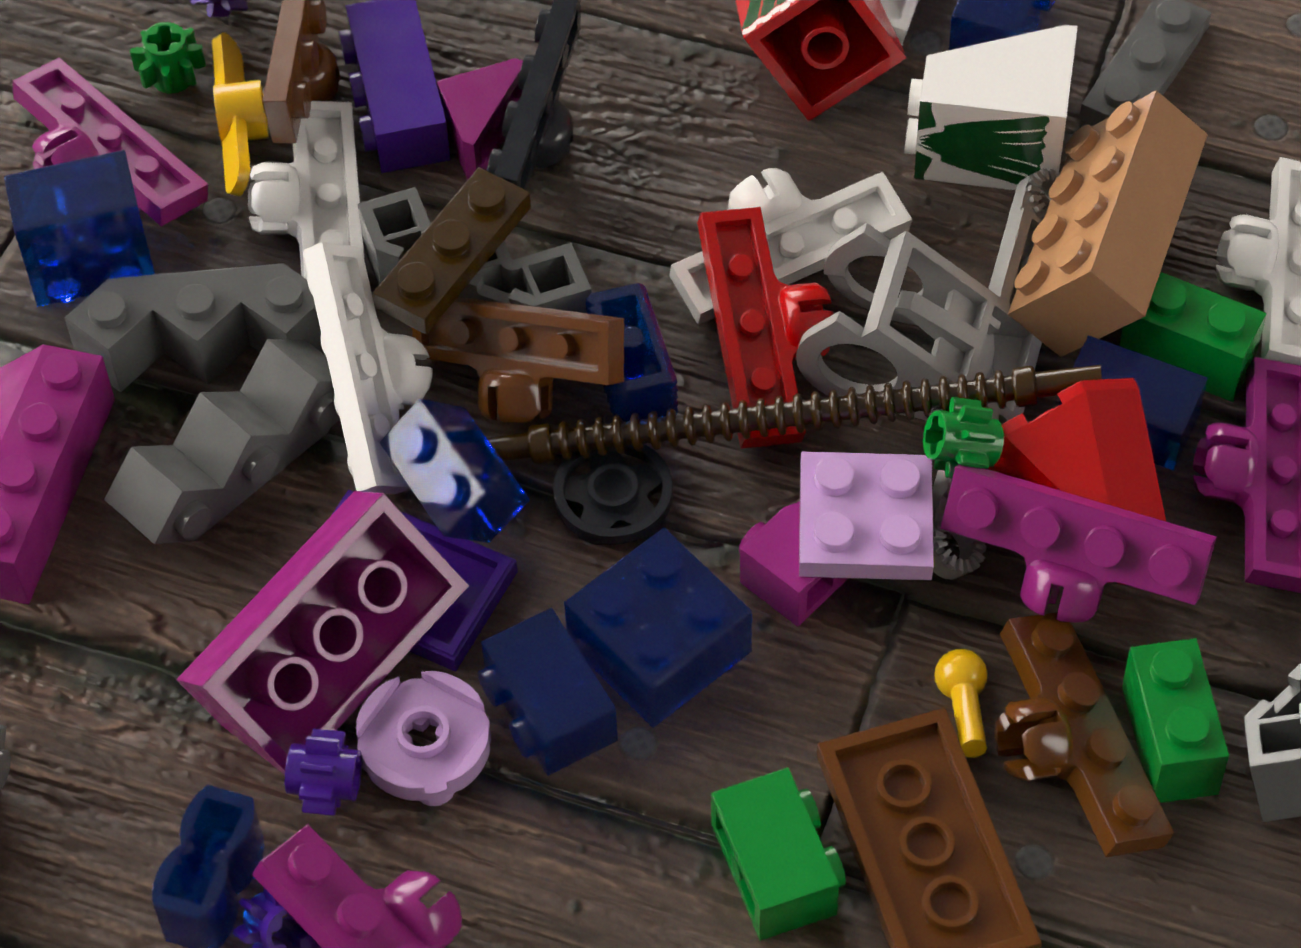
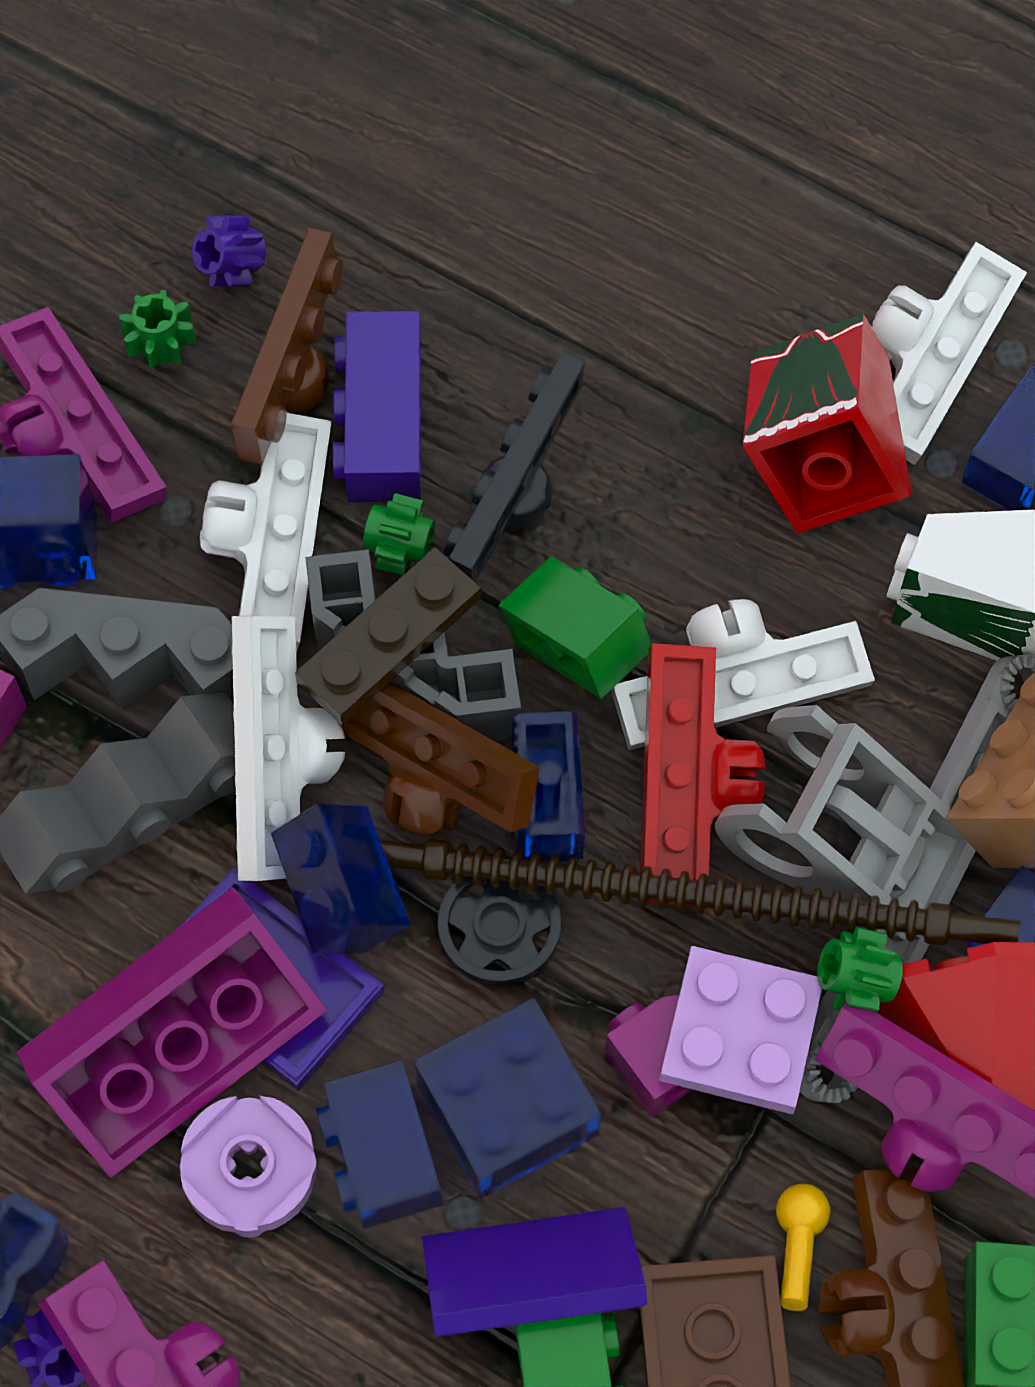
camera: 10 degrees right, 10 degrees up
(238, 112) = (212, 404): yellow piece -> none
(323, 772) = (139, 1186): dark purple gear -> none
(437, 177) = (398, 534): none -> green gear
(476, 110) = (455, 456): magenta slope -> none
(625, 222) = (577, 626): none -> green brick
(721, 763) = (533, 1271): none -> dark purple tile

